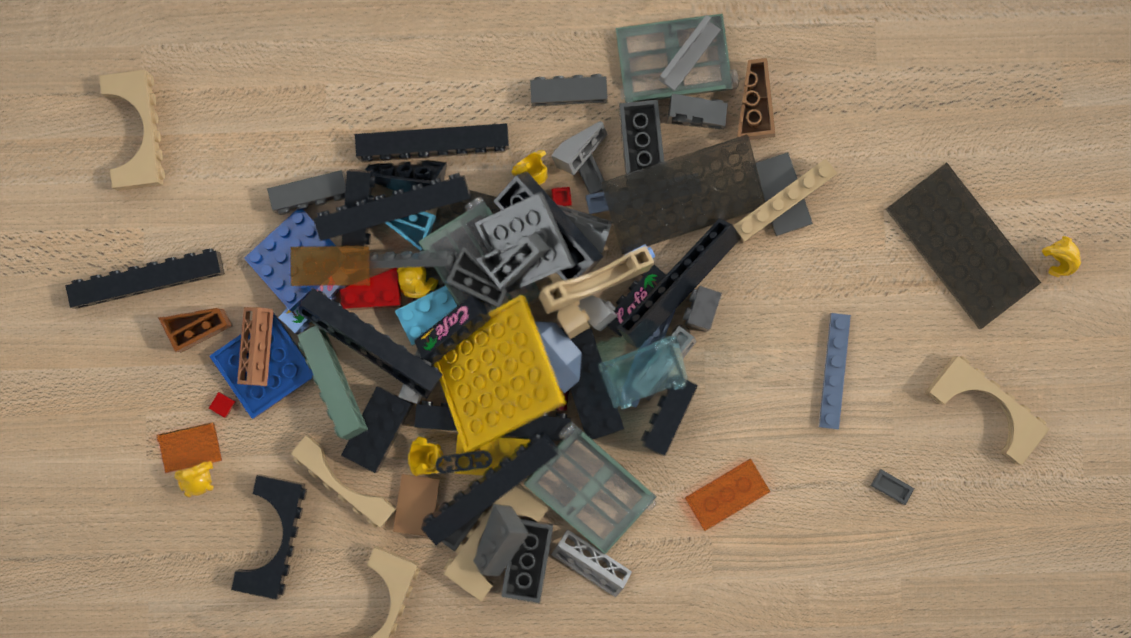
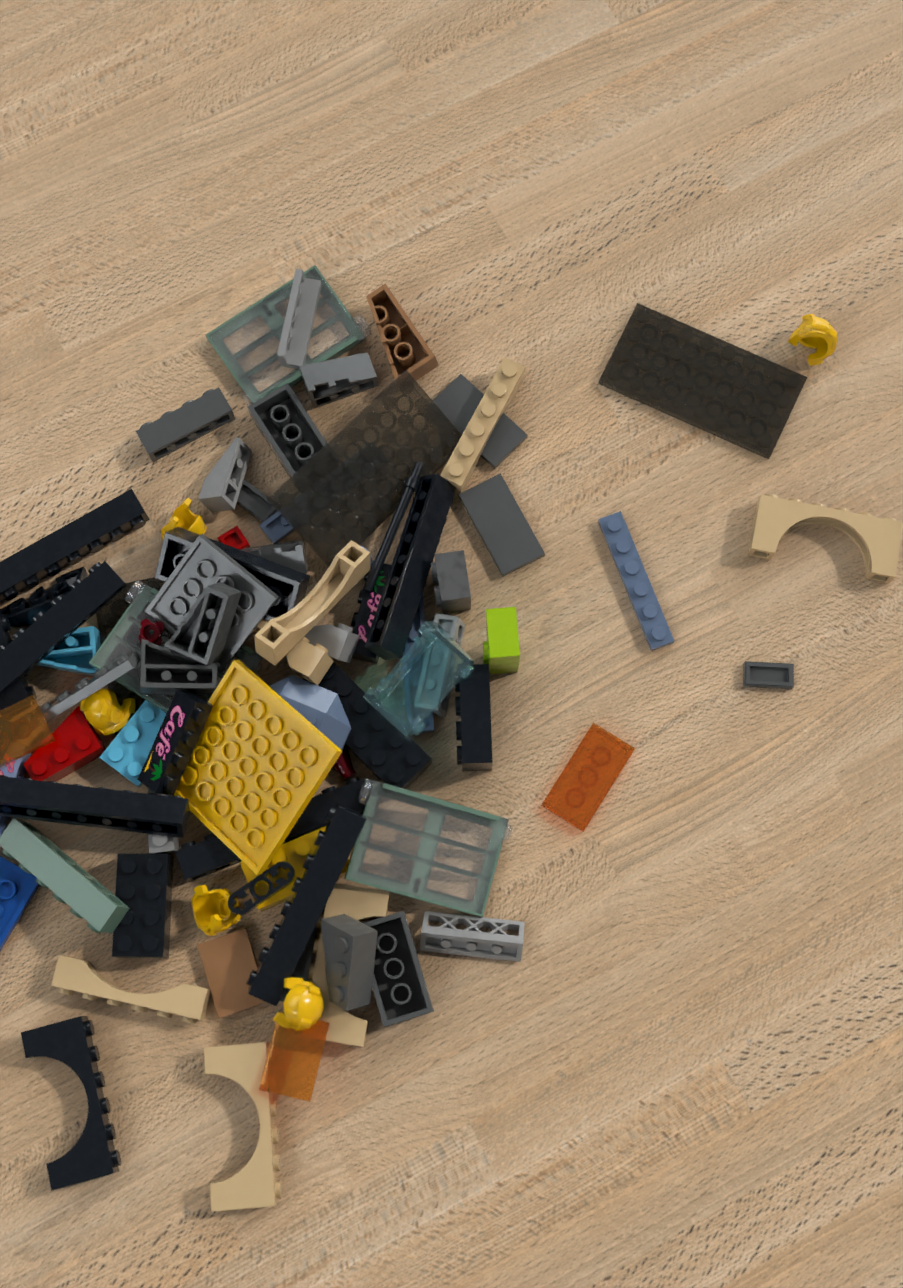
camera: 25 degrees left, 10 degrees down
(431, 584) = (294, 1061): none -> clear orange piece
(454, 555) = (301, 1005): none -> yellow helmet
(466, 241) = (146, 626): none -> dark red plate
(707, 223) = (411, 485): none -> black bar
(716, 372) = (502, 642): none -> lime wedge
(759, 281) = (501, 525): none -> dark grey tile

